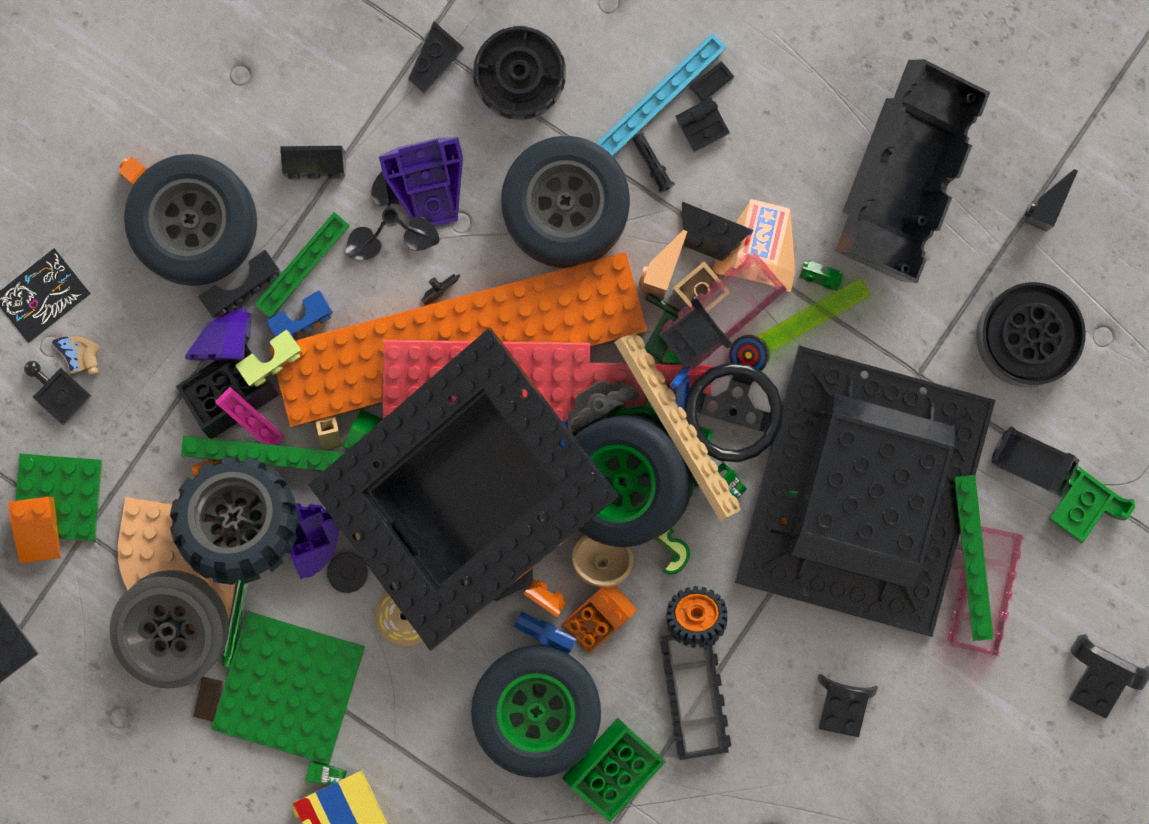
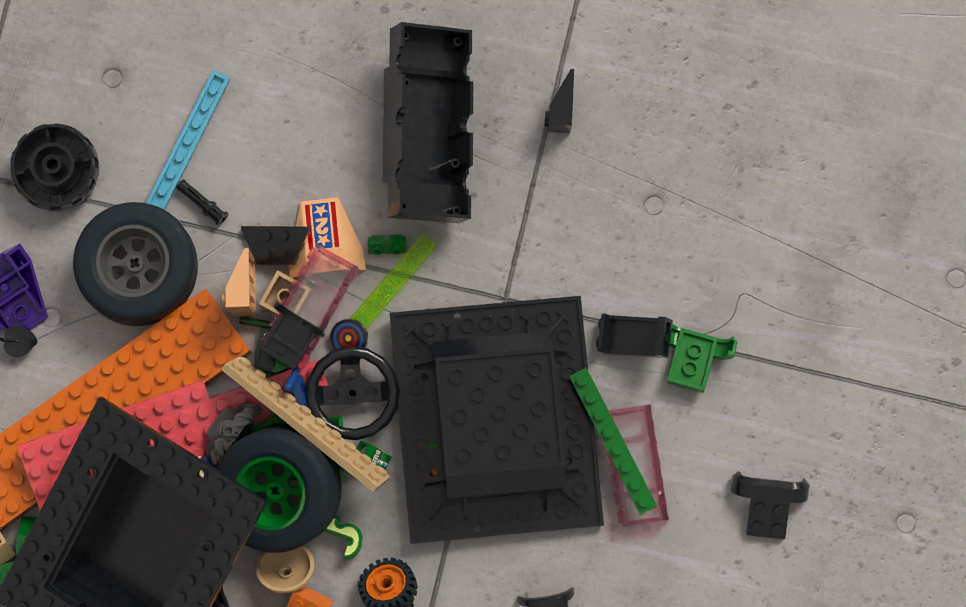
camera: 20 degrees left, 5 degrees down
(438, 288) = (52, 383): black piece -> none
(702, 124) = (233, 152): black plate -> none
(712, 81) = (228, 112): black tile -> none
(1007, 360) = (575, 256): black wheel -> none

